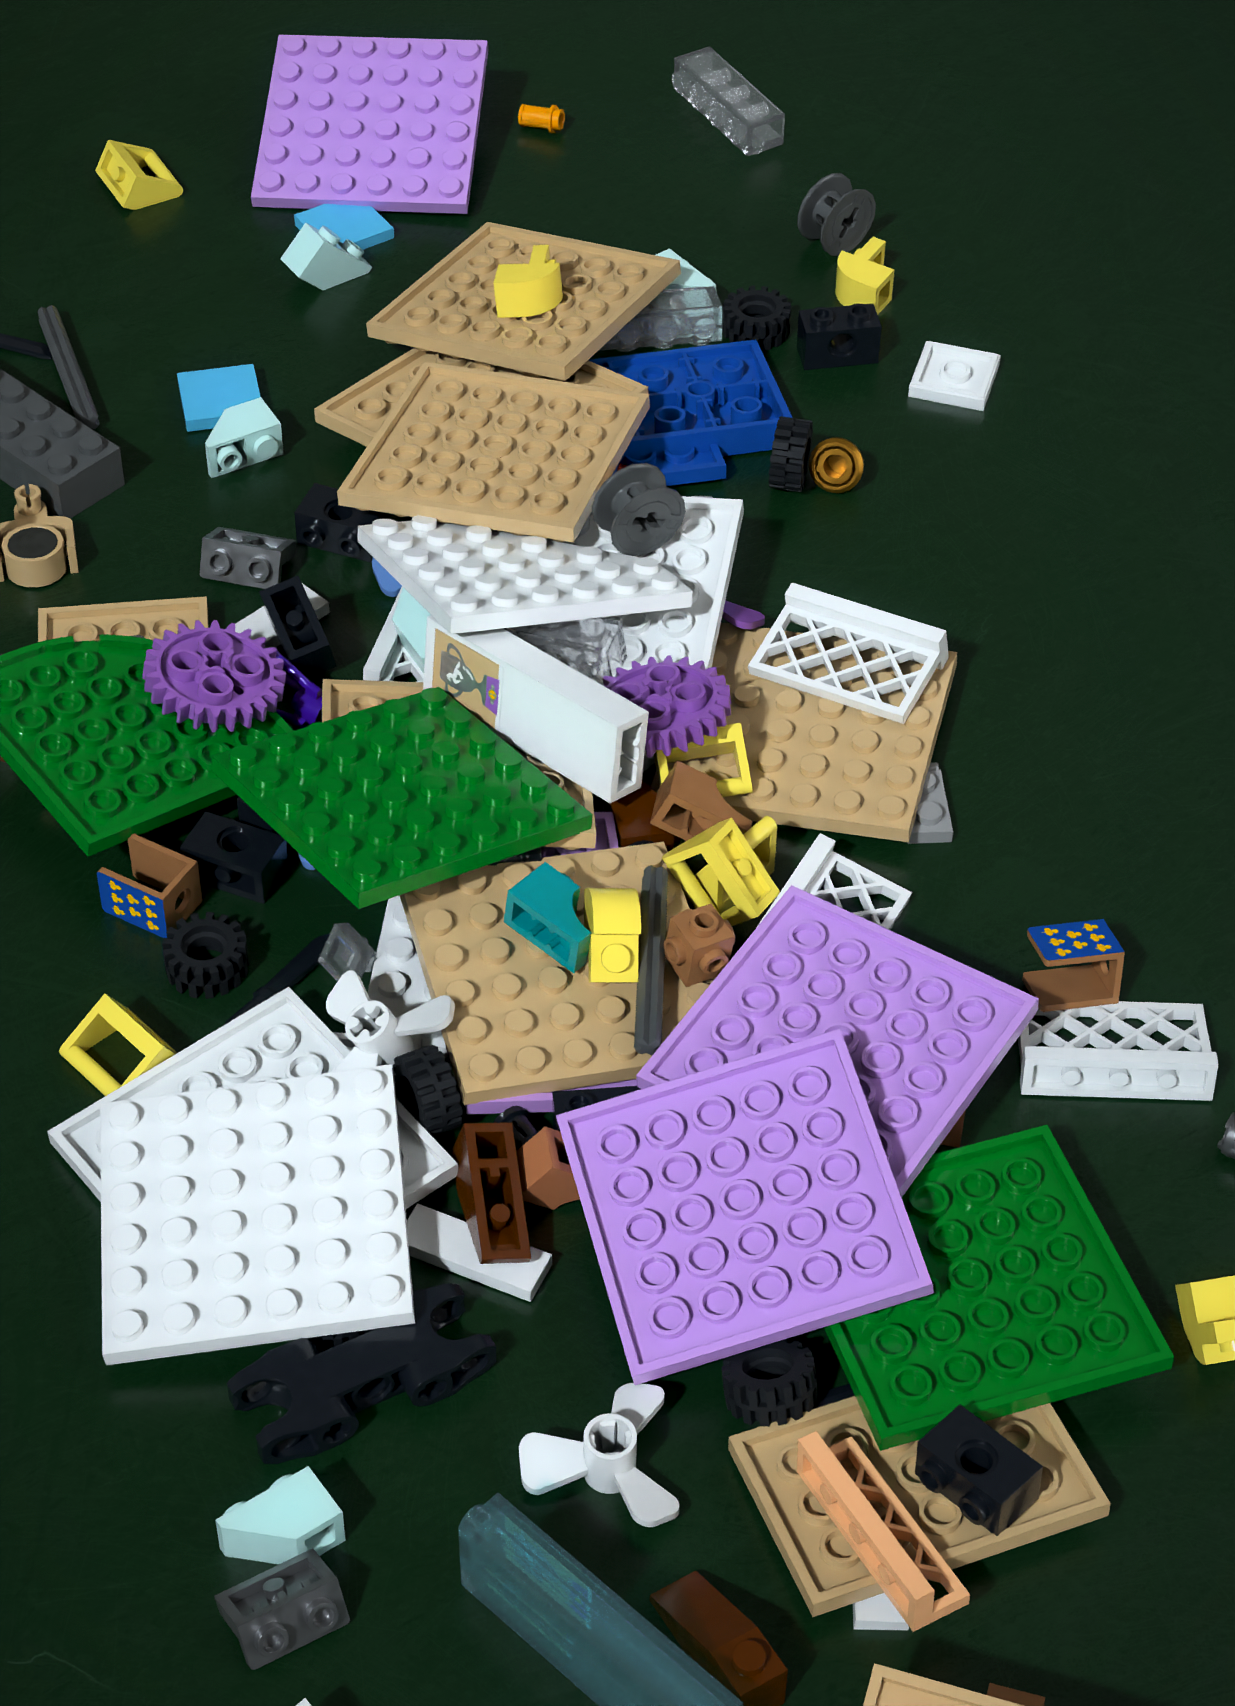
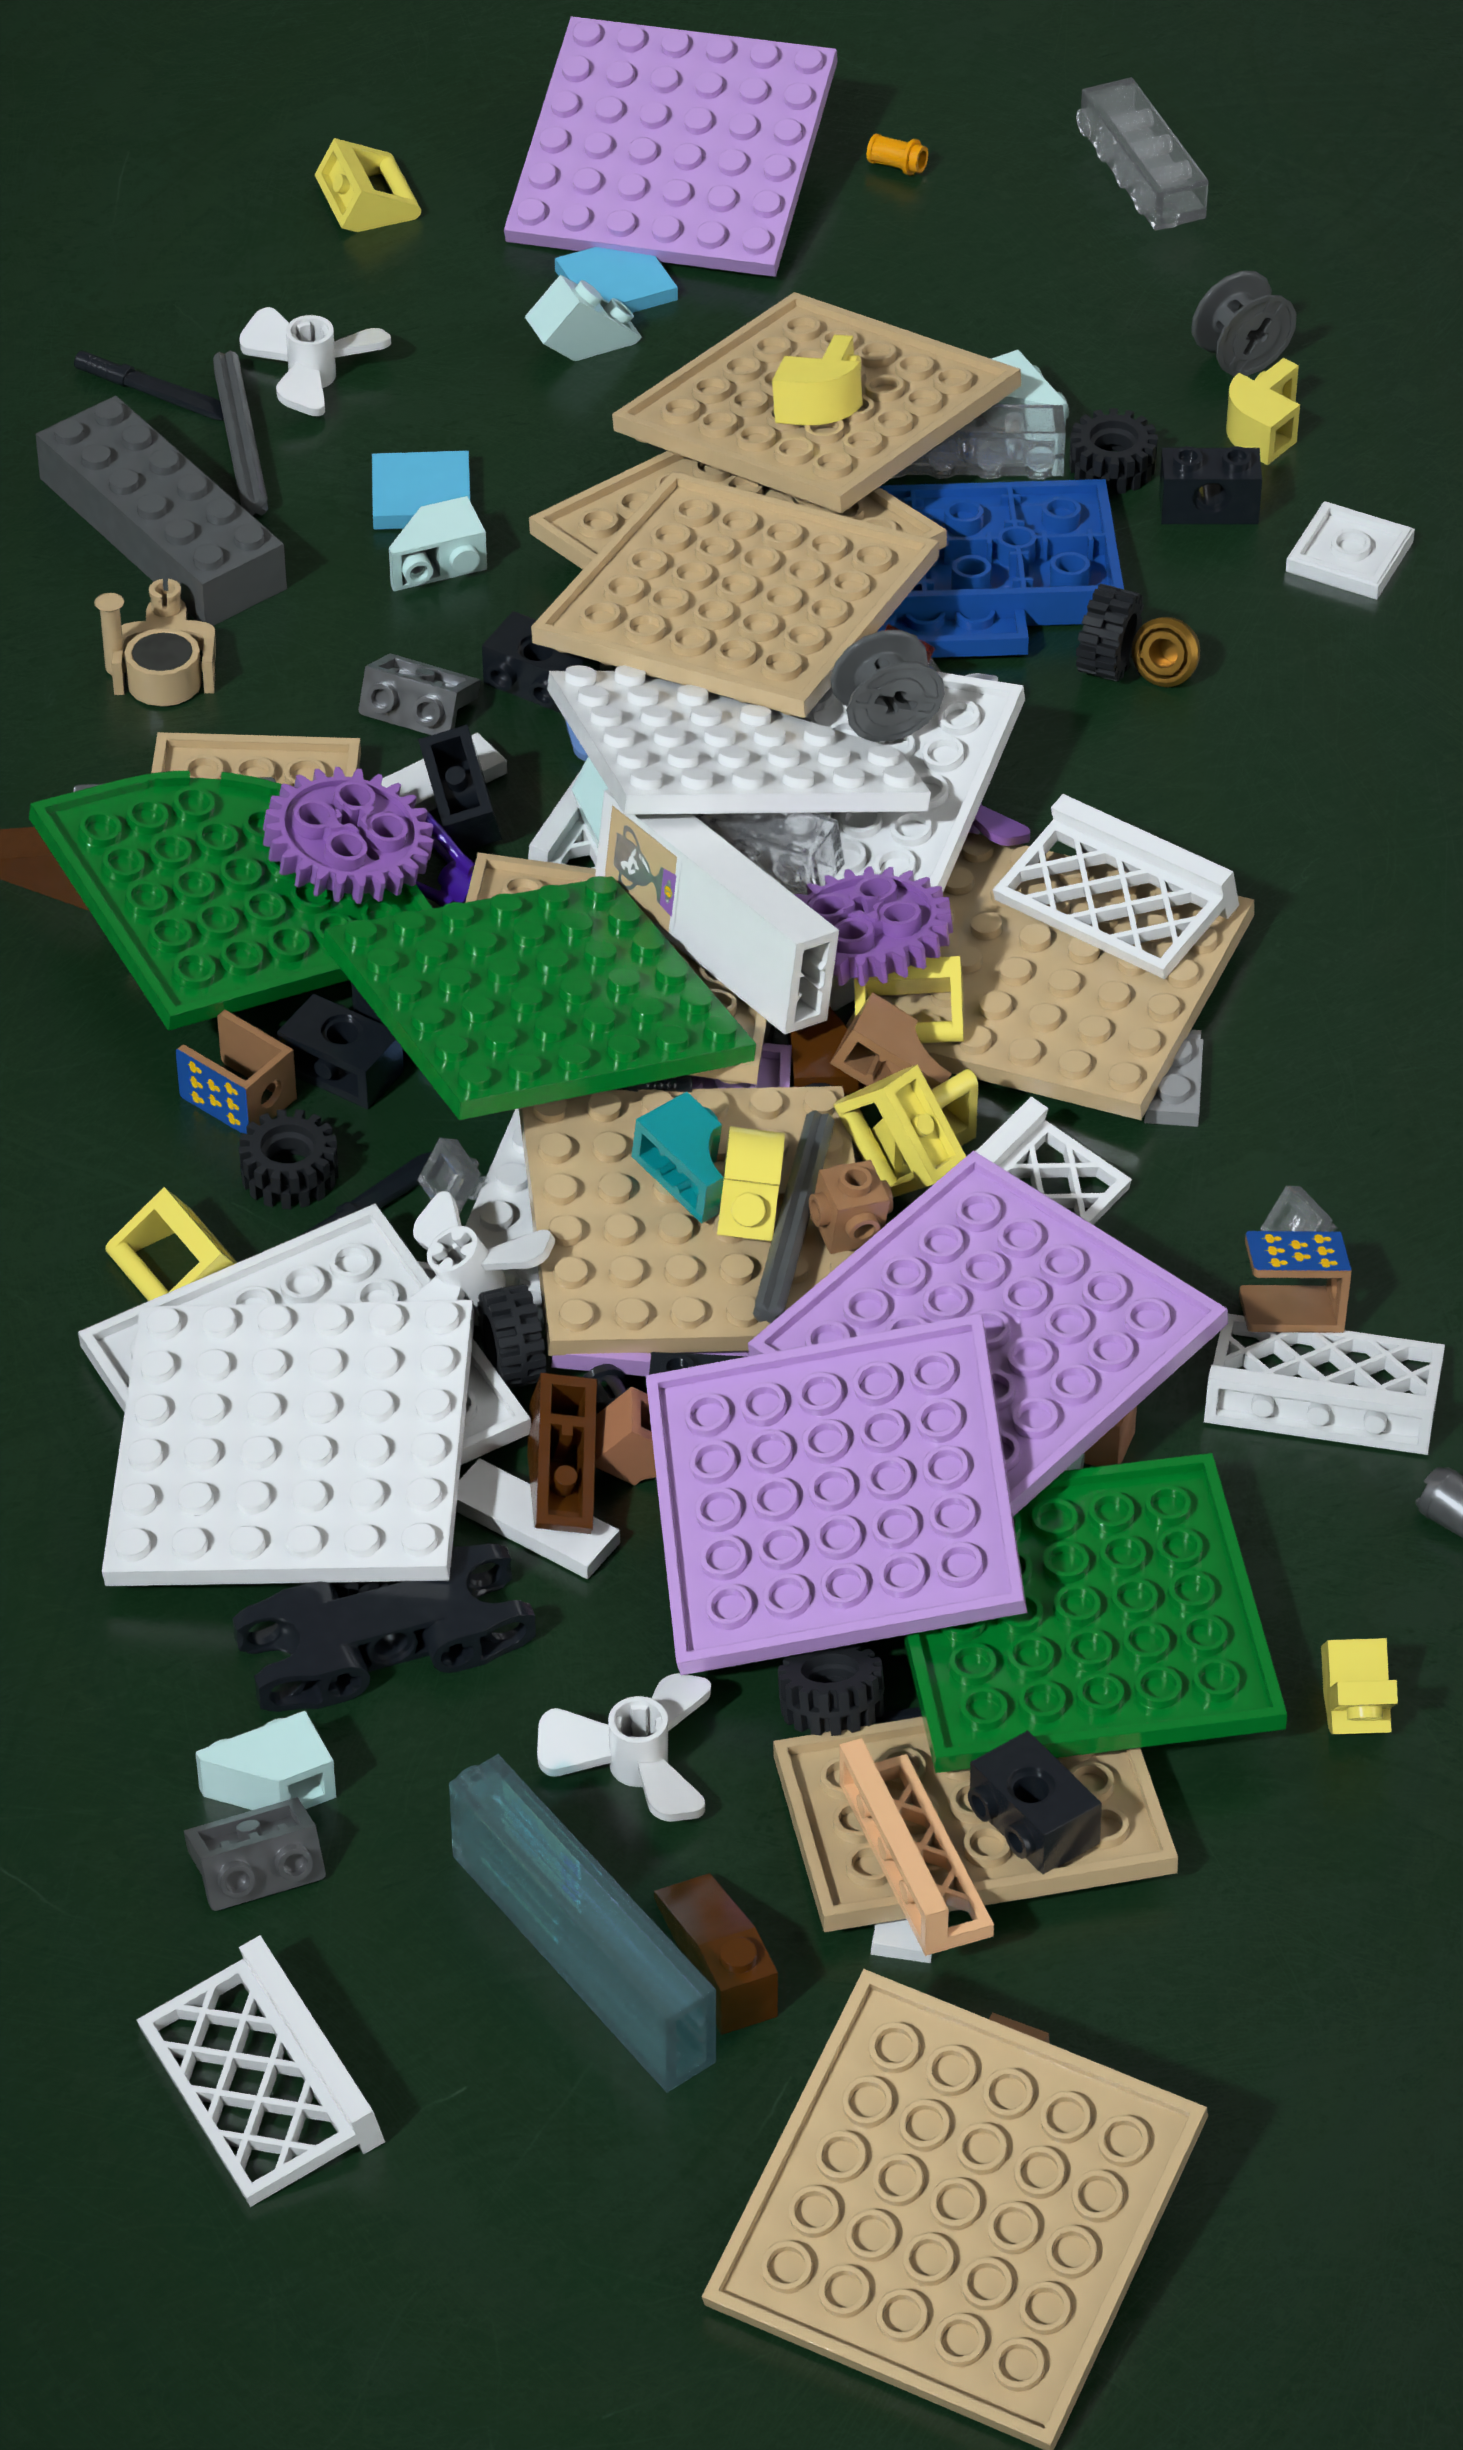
camera: 10 degrees right, 0 degrees up
(113, 298) = (310, 353): none -> white piece
(1056, 907) = (1297, 1212): none -> clear tile

